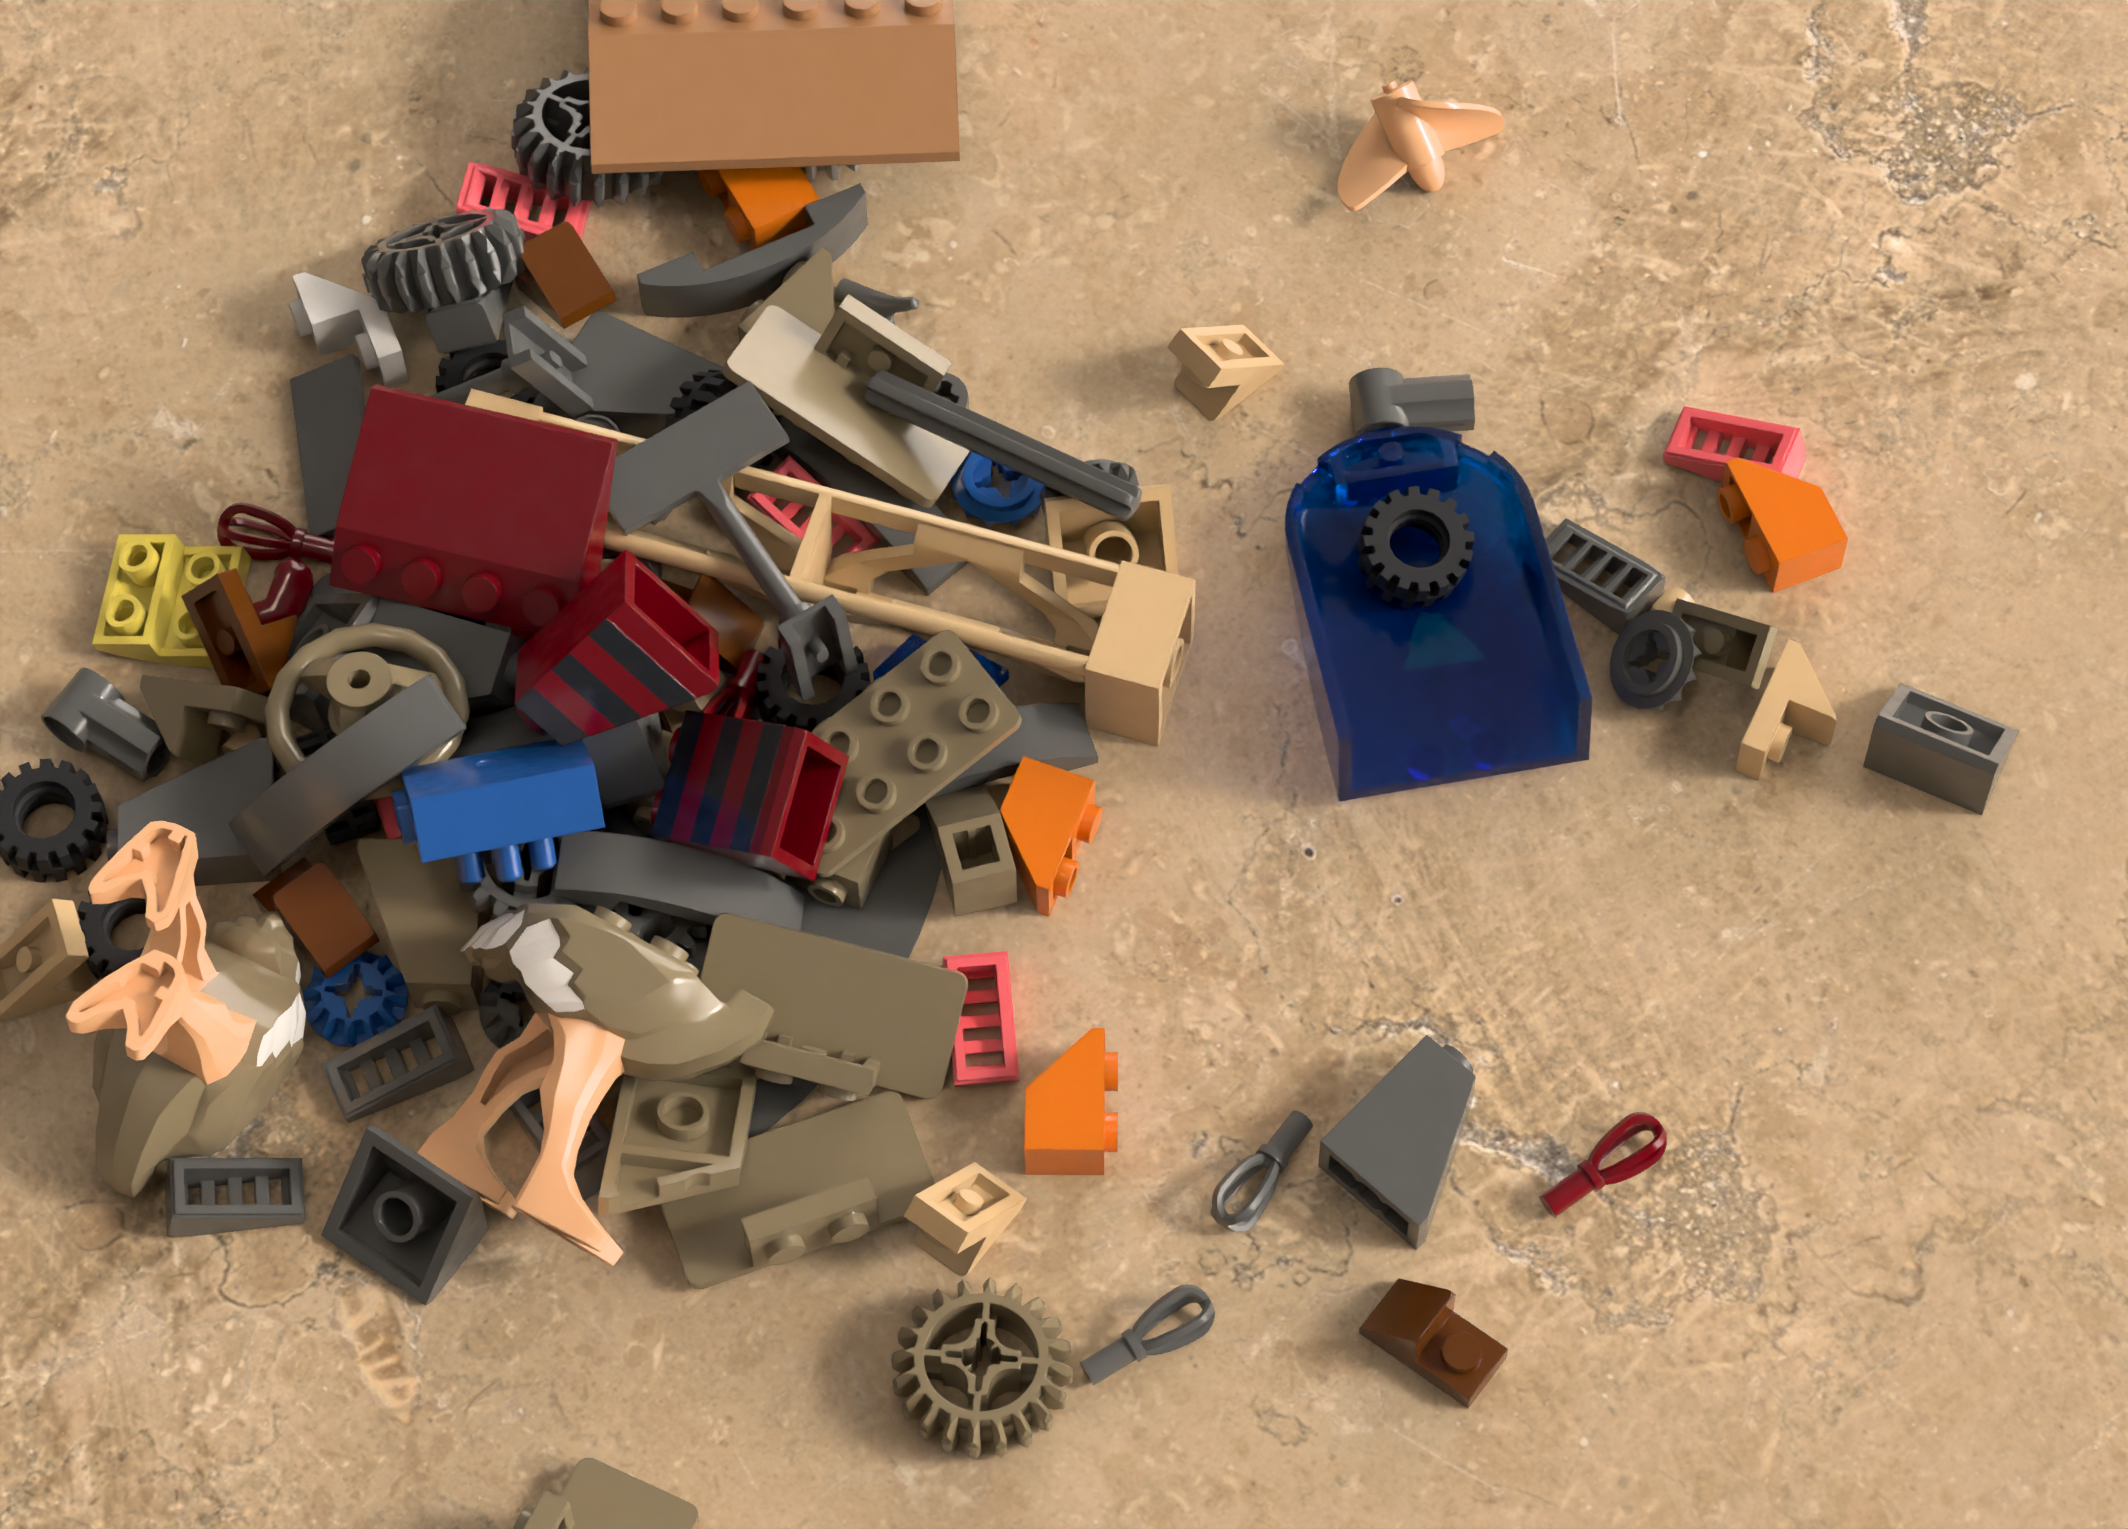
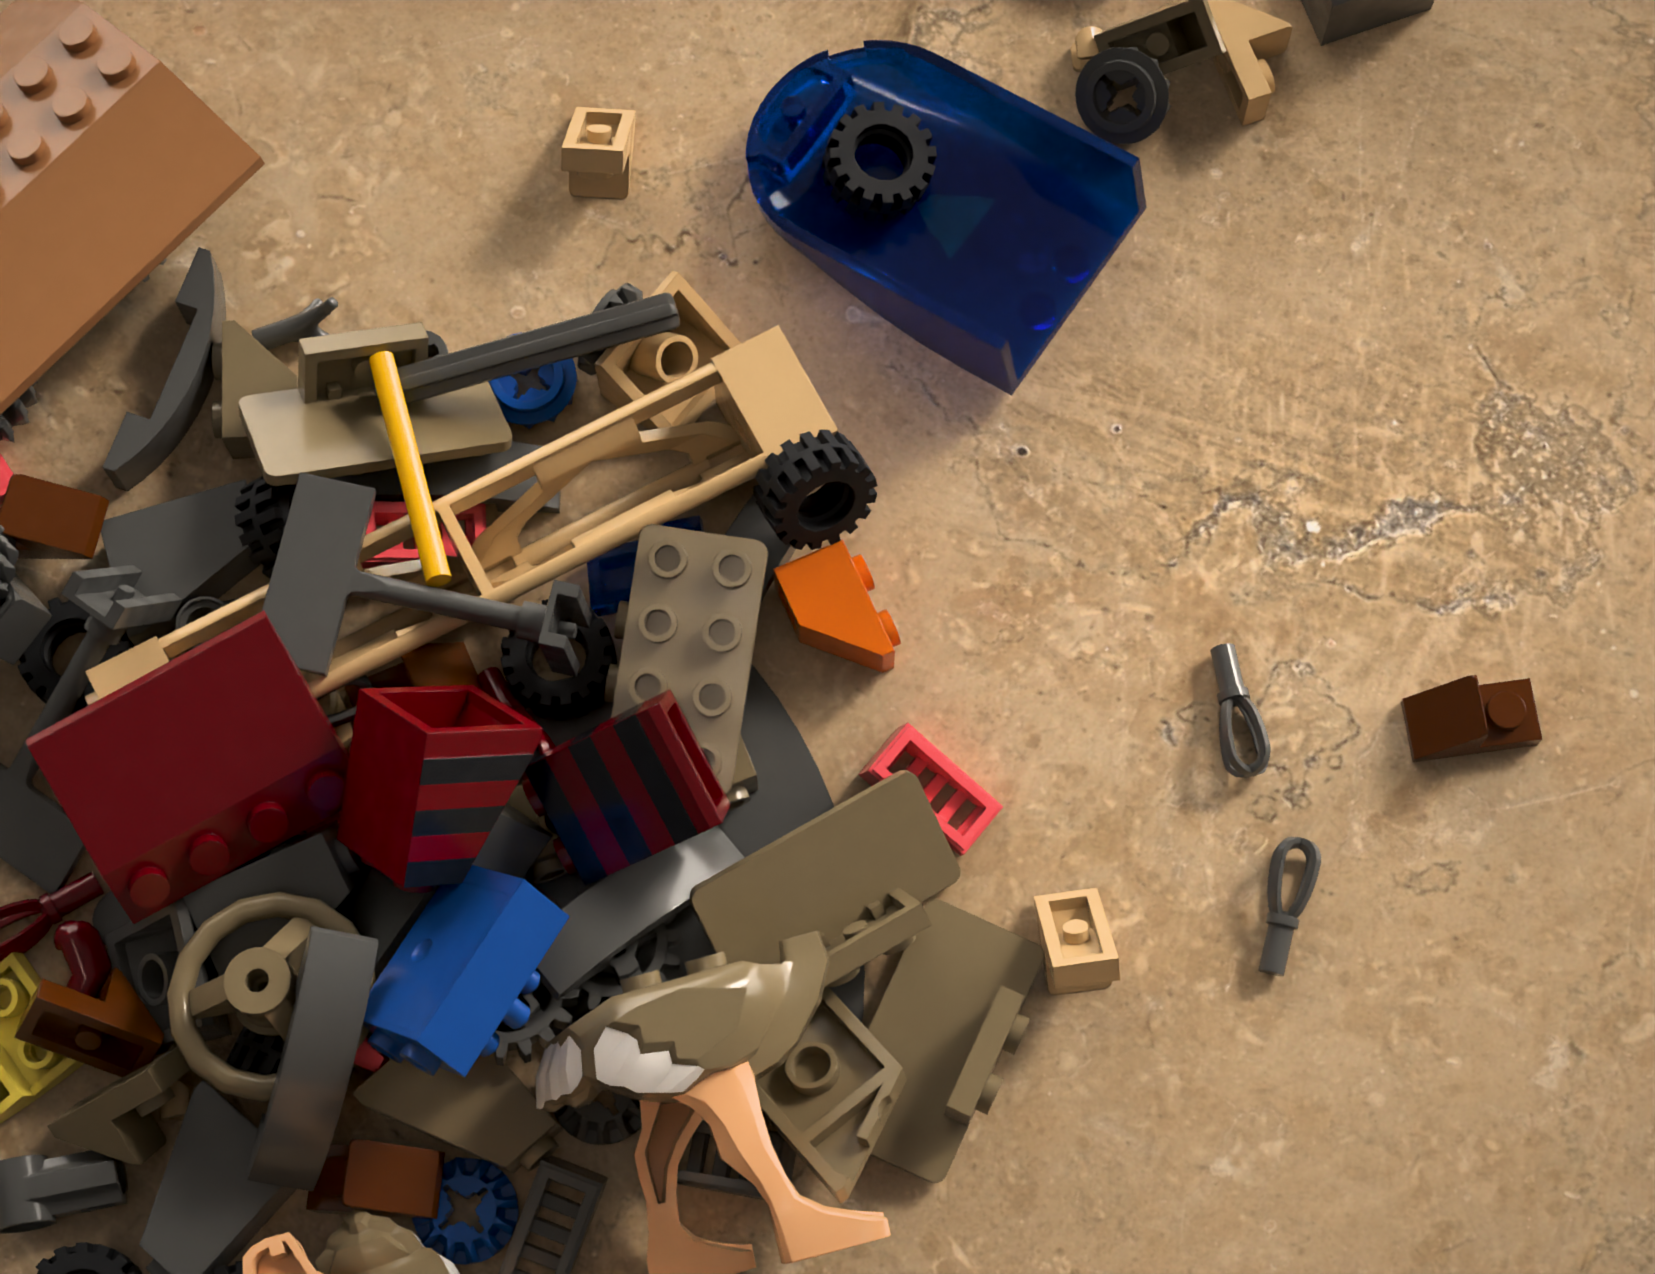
camera: 45 degrees left, 10 degrees up
(760, 201) = (138, 331): orange slope -> none
(829, 447) = (410, 469): none -> yellow bar
(958, 1361) = (1224, 1064): dark tan gear -> none
(972, 850) = (805, 670): dark tan slope -> none
(1067, 1112) = (1069, 798): orange slope -> none
(1096, 747) = (799, 471): none -> black tyre
(1387, 400) = (748, 71): dark grey piece -> none
(1403, 1138) = (1313, 595): dark grey slope -> none
(1590, 1178) = (1451, 504): dark red piece -> none
(1614, 612) = (1030, 46): dark grey slope -> none

